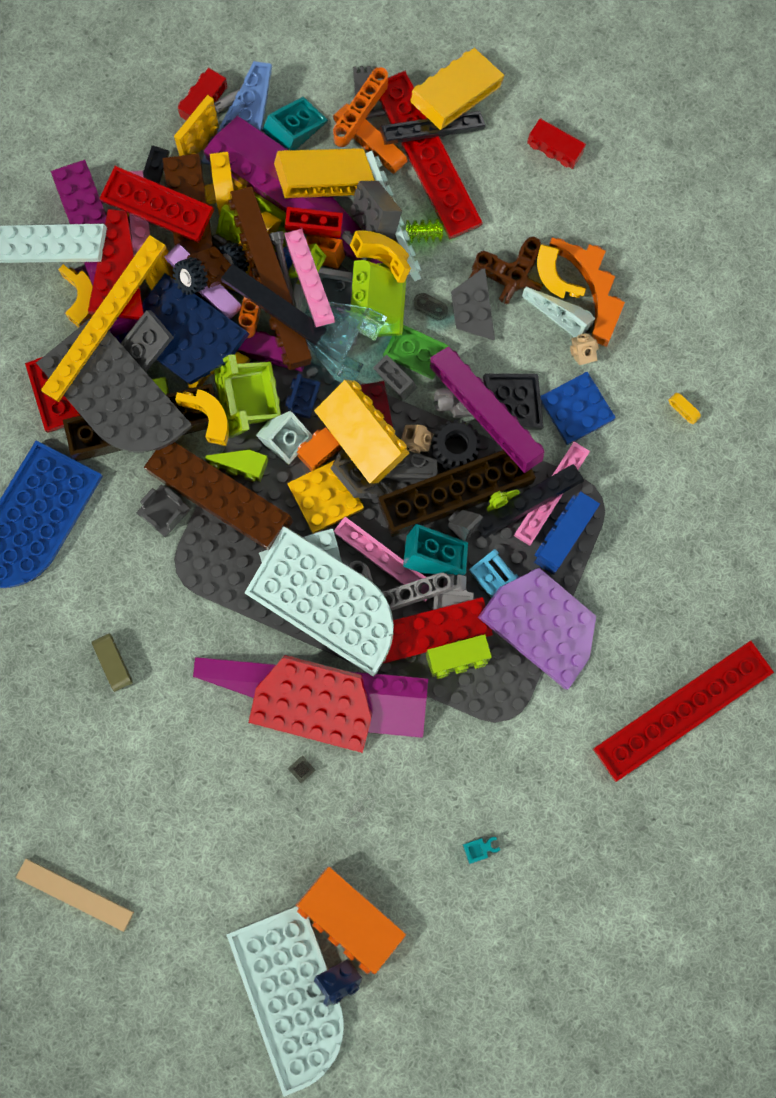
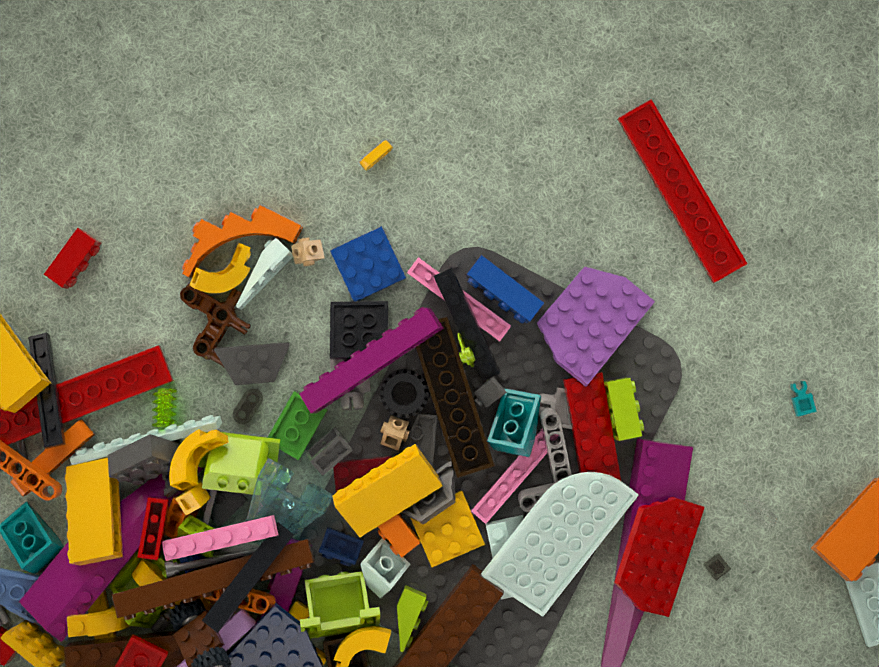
camera: 80 degrees left, 10 degrees up
(343, 255) = (193, 498): none -> yellow brick
(487, 576) = (541, 370): medium azure plate -> none

